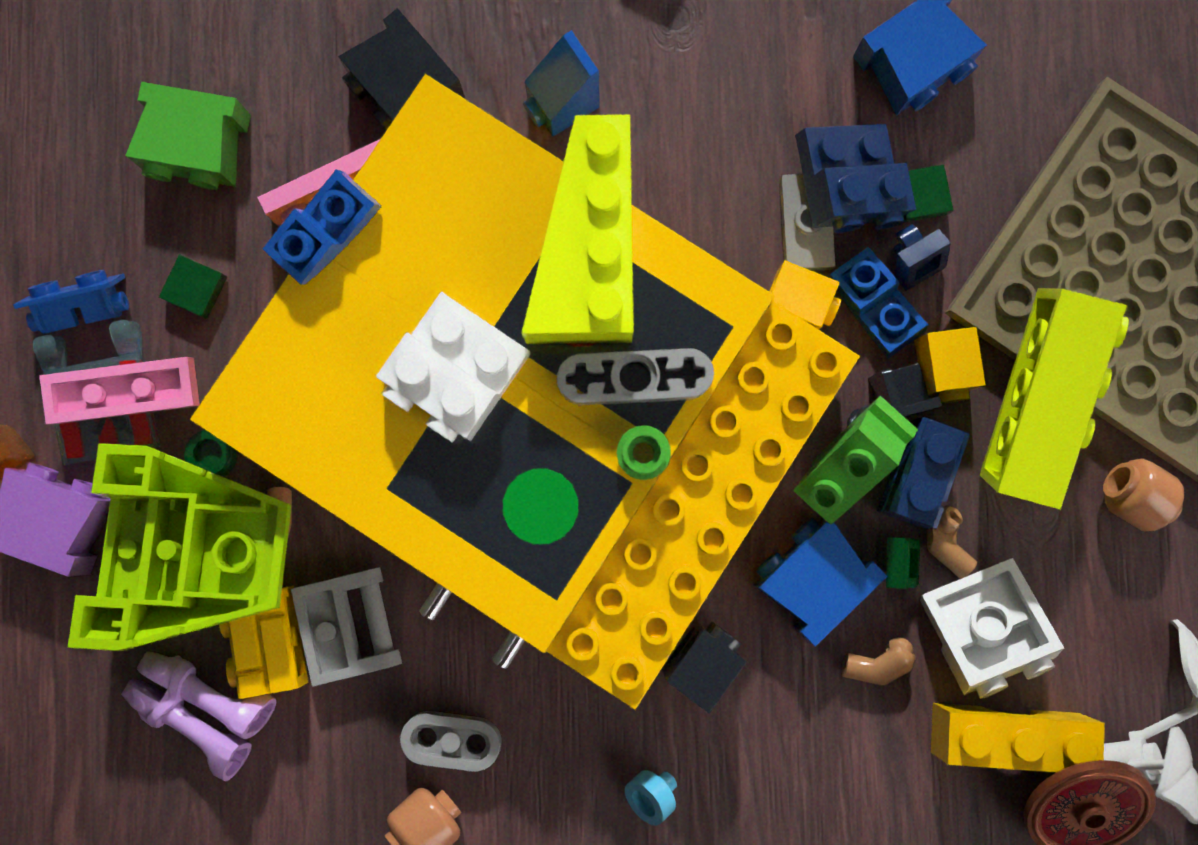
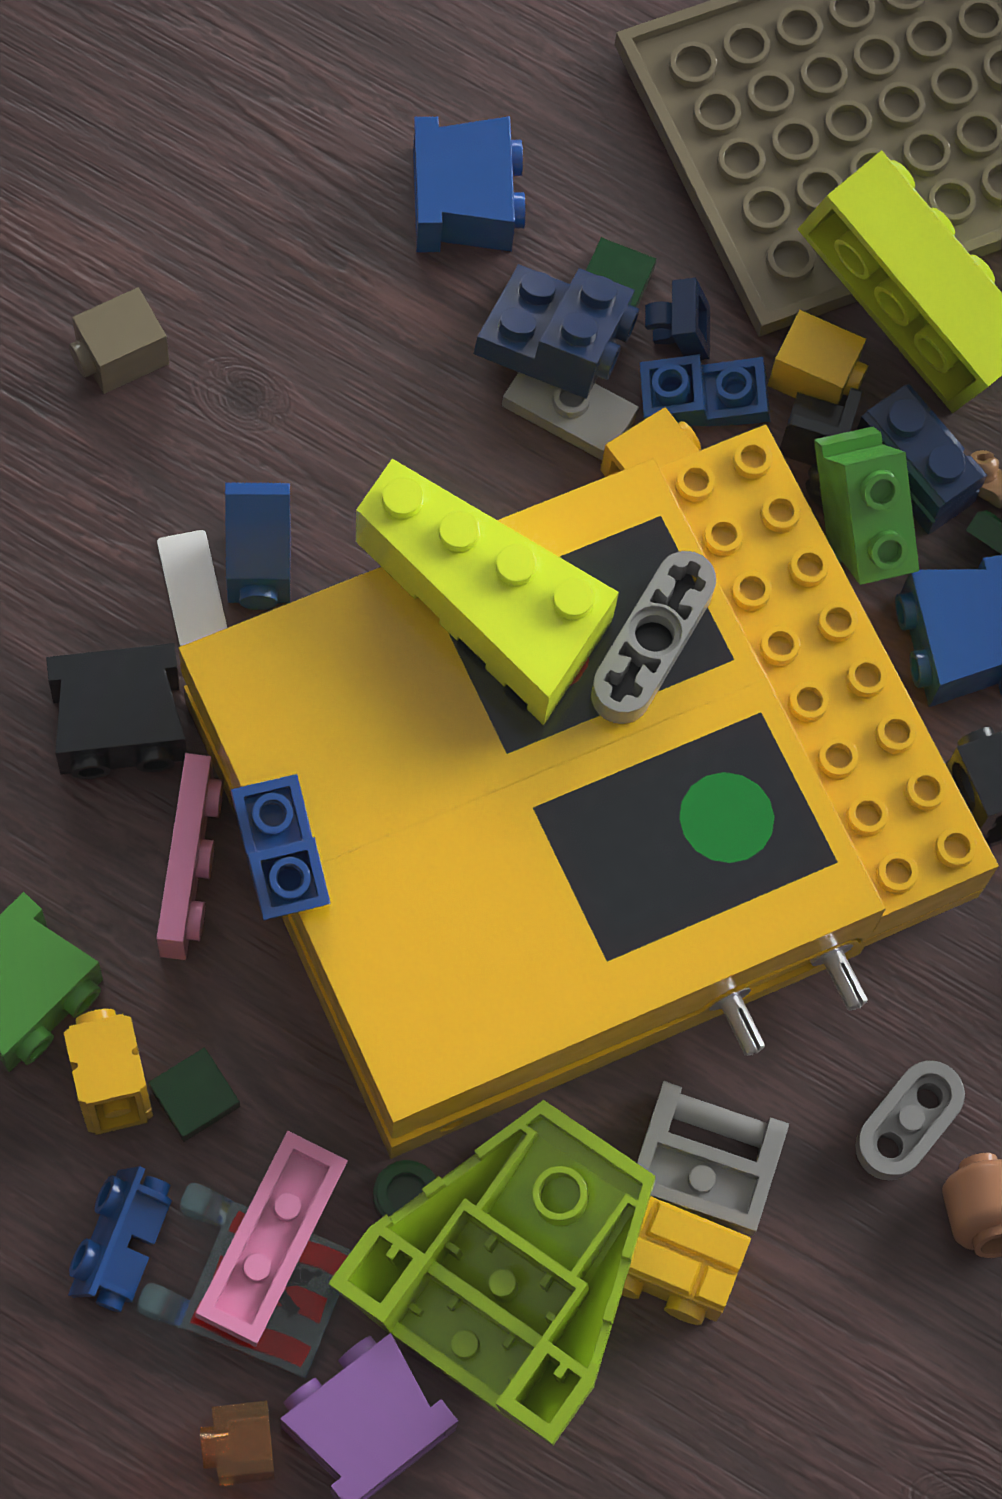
camera: 70 degrees left, 15 degrees down
(152, 223) = (107, 1071): none -> yellow brick
(241, 716) = (660, 1384): lavender piece -> none
(452, 368) = (526, 808): white plate -> none
(507, 83) = (191, 585): none -> white sticker
(652, 437) = (743, 659): bright green plate -> none

